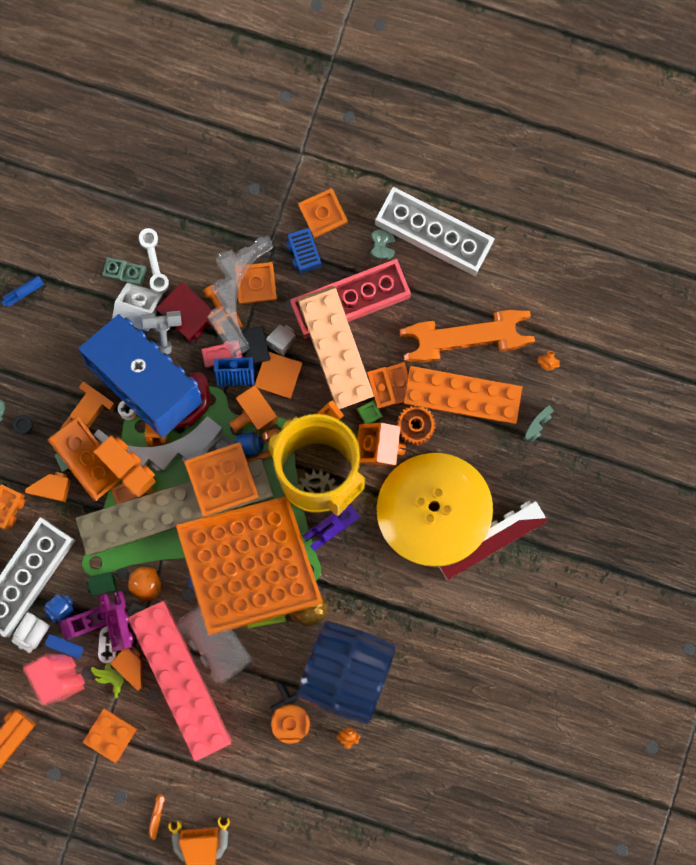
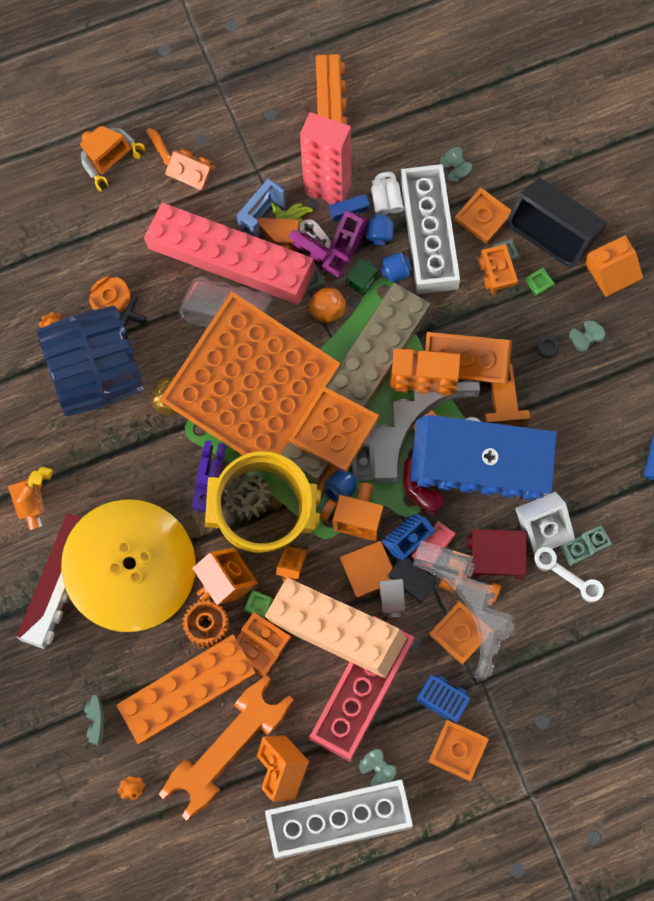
camera: 145 degrees right, 10 degrees down
(51, 487) = (474, 315): orange slope -> none
(73, 570) = (396, 267): none -> blue head
(110, 735) = (249, 172): orange plate -> none
(149, 692) = (274, 194): none -> medium blue panel
(150, 777) = (189, 168): none -> bracket
(162, 324) = (506, 518): light grey bar -> none
(440, 292) = (284, 765): none -> orange panel
(463, 616) = (28, 497): none -> orange torso

